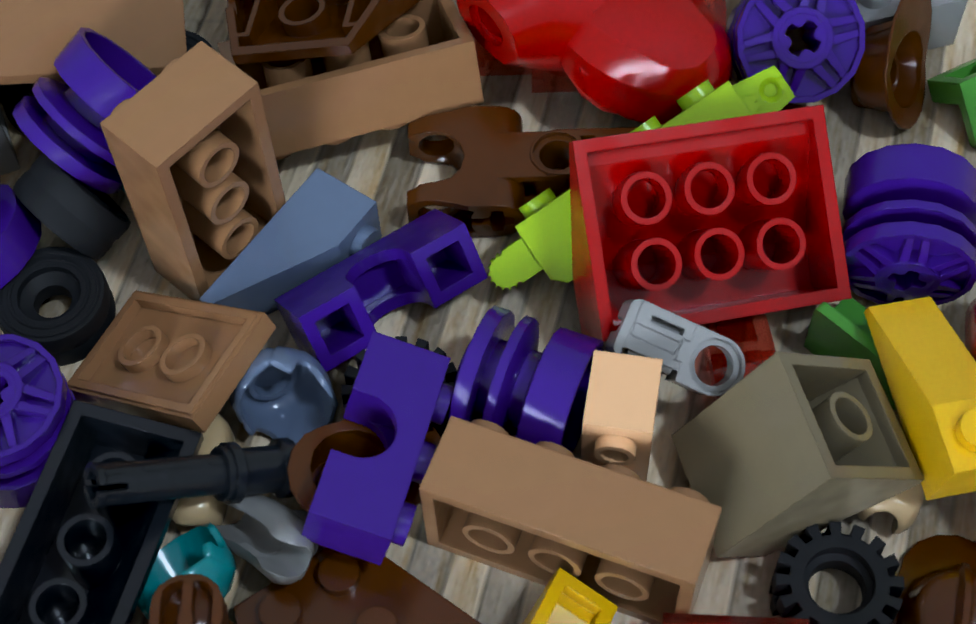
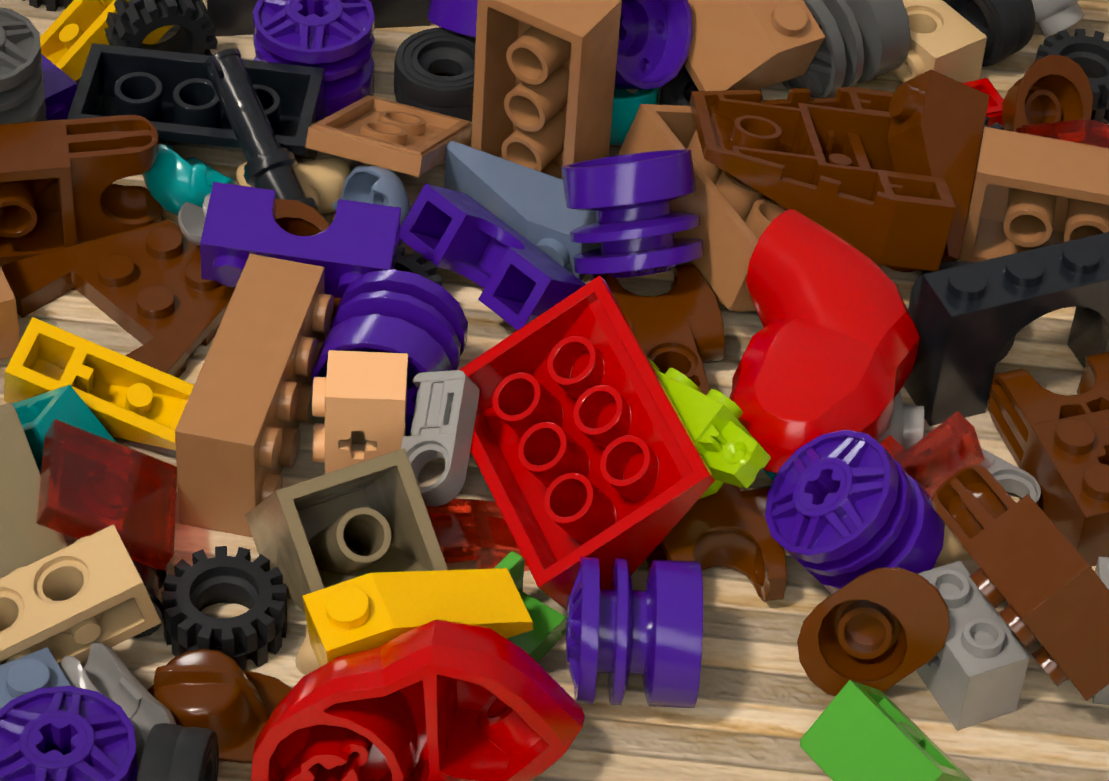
camera: 75 degrees right, 15 degrees down
(390, 134) = (633, 212): none -> dark purple wheel

